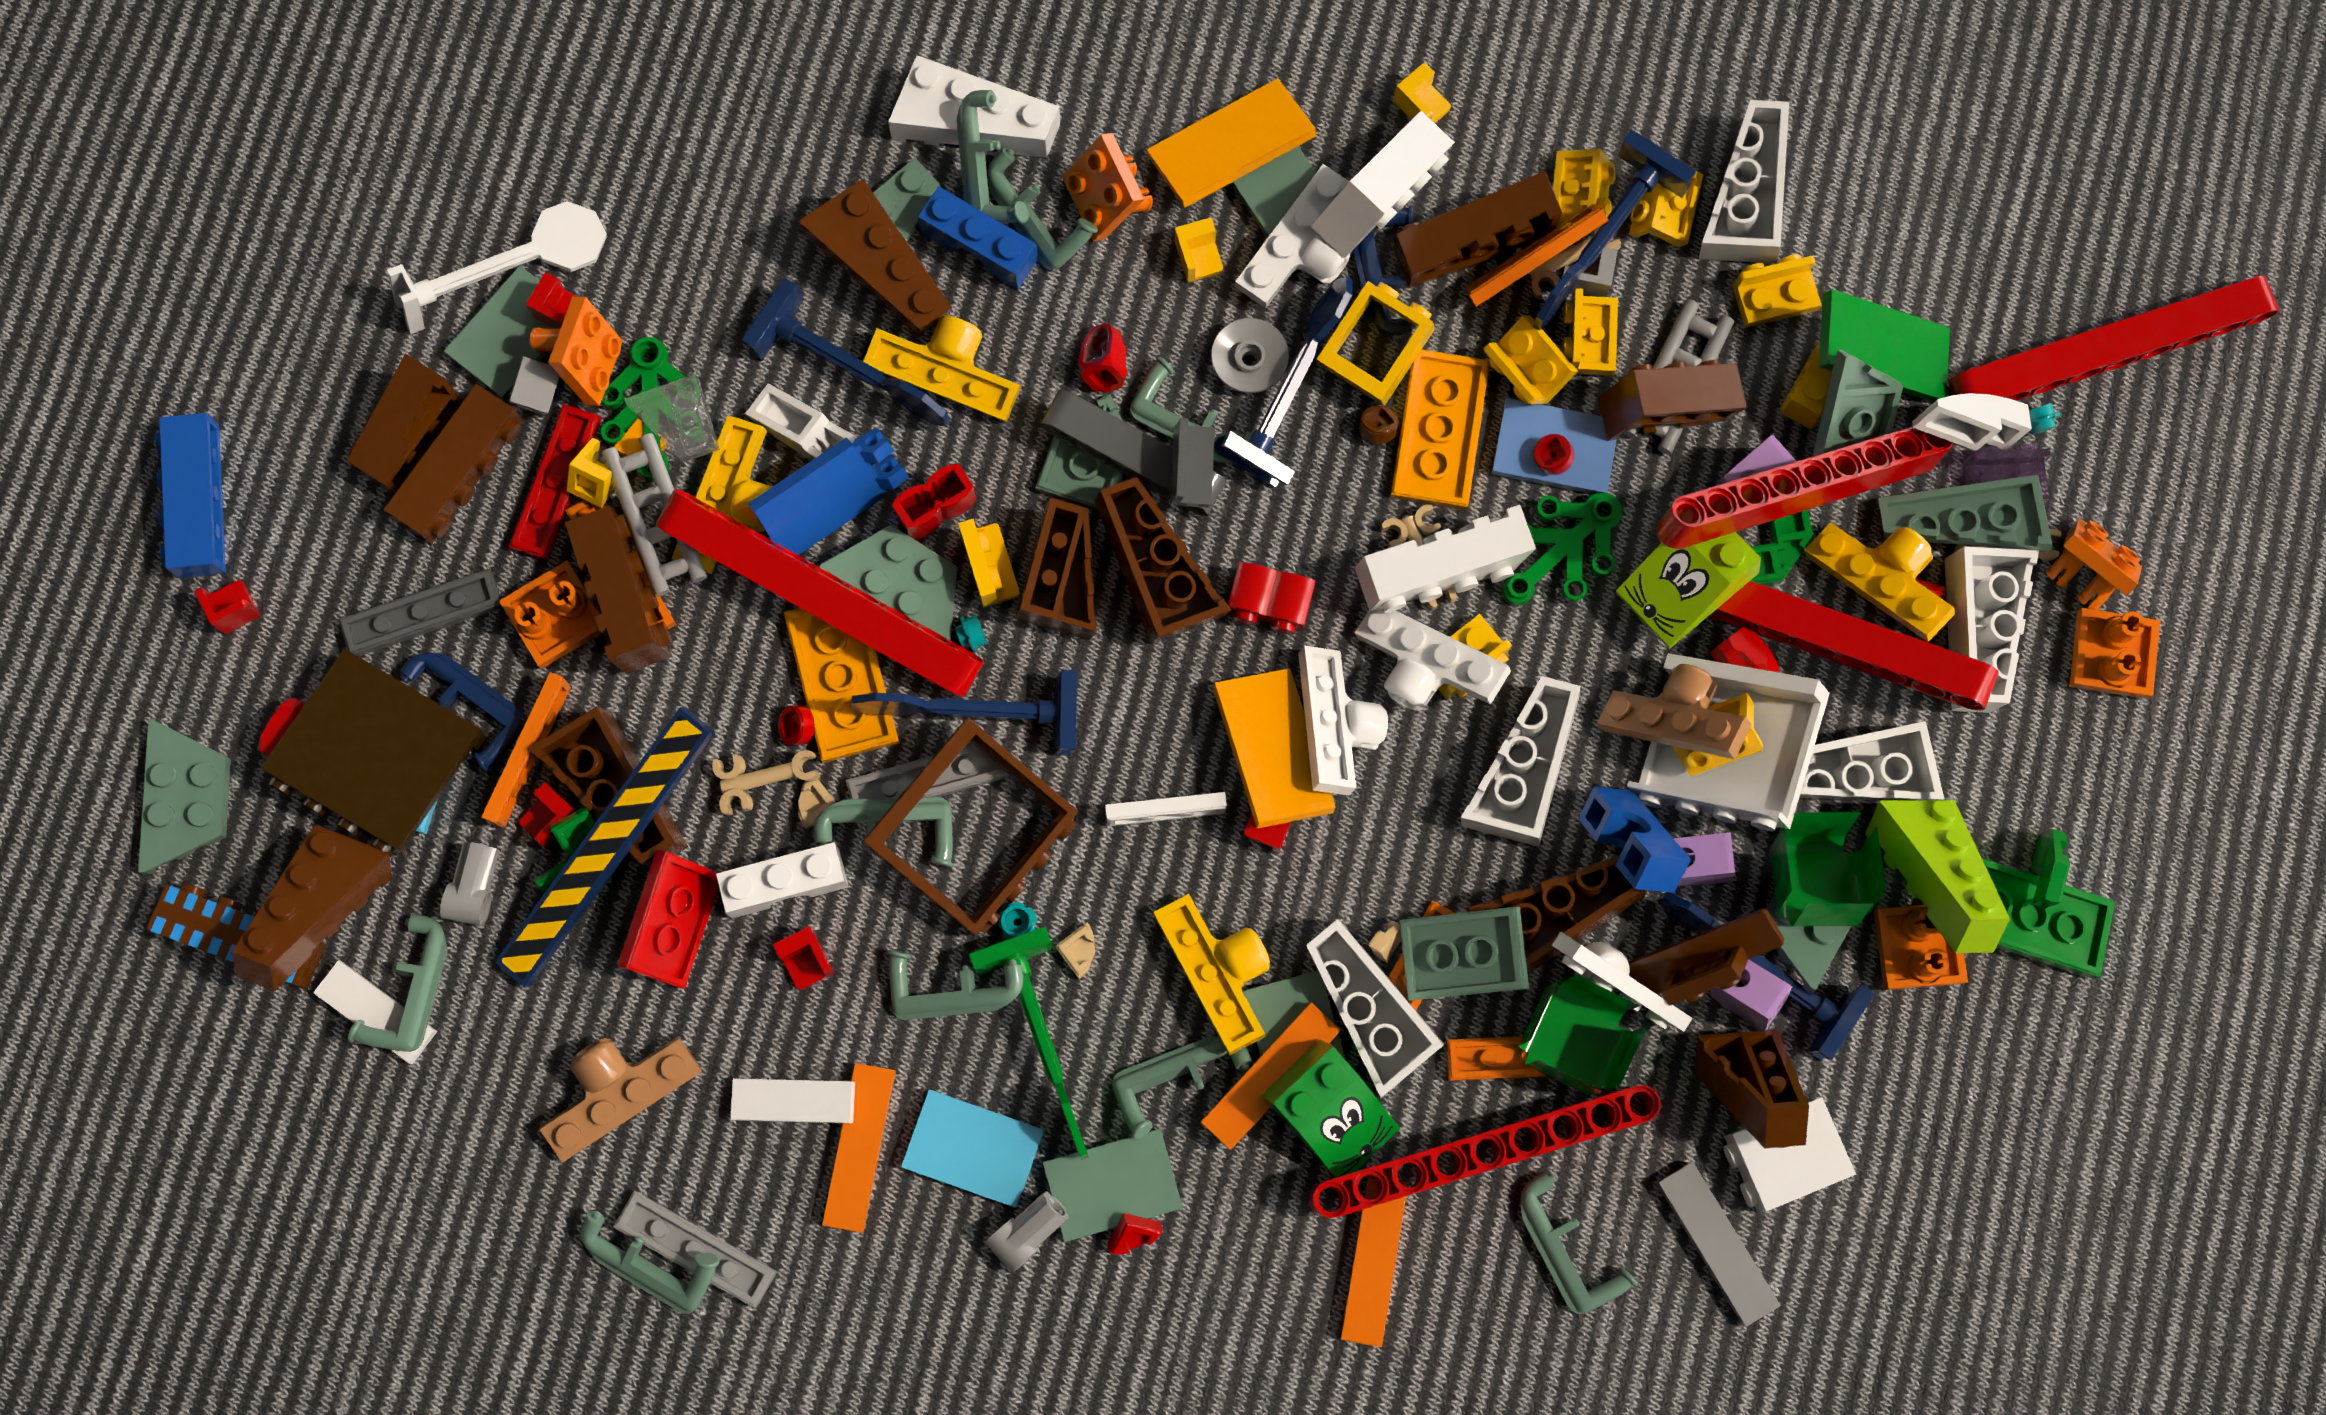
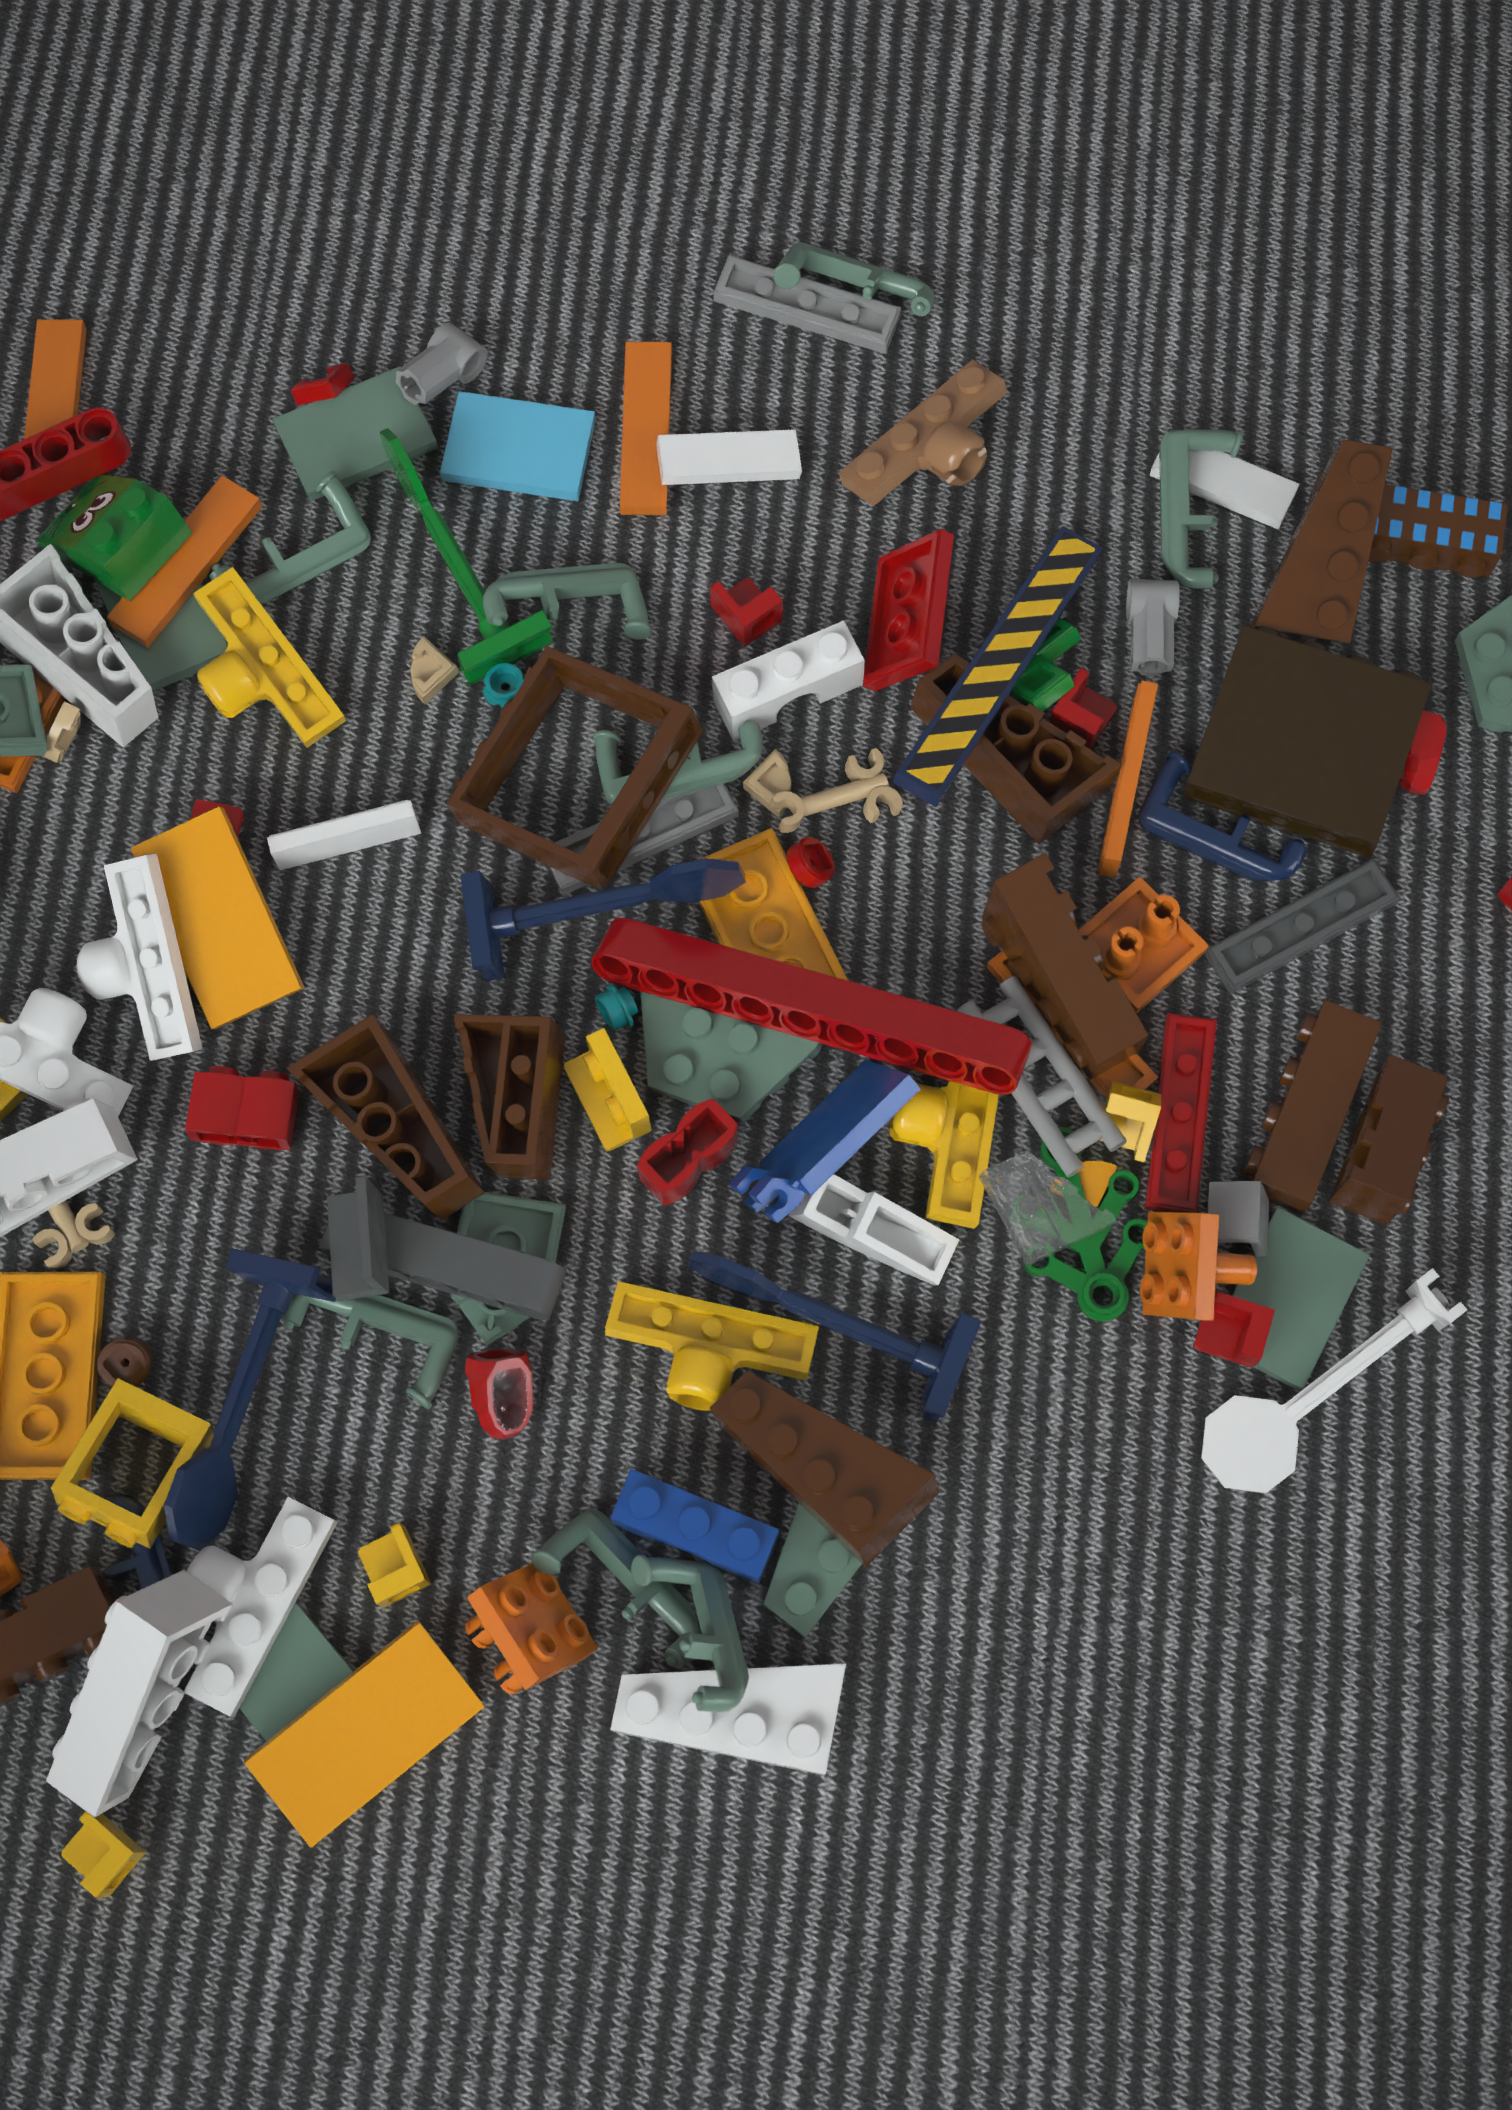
camera: 175 degrees right, 5 degrees down
(1252, 338) = (286, 1407): light grey dish -> none

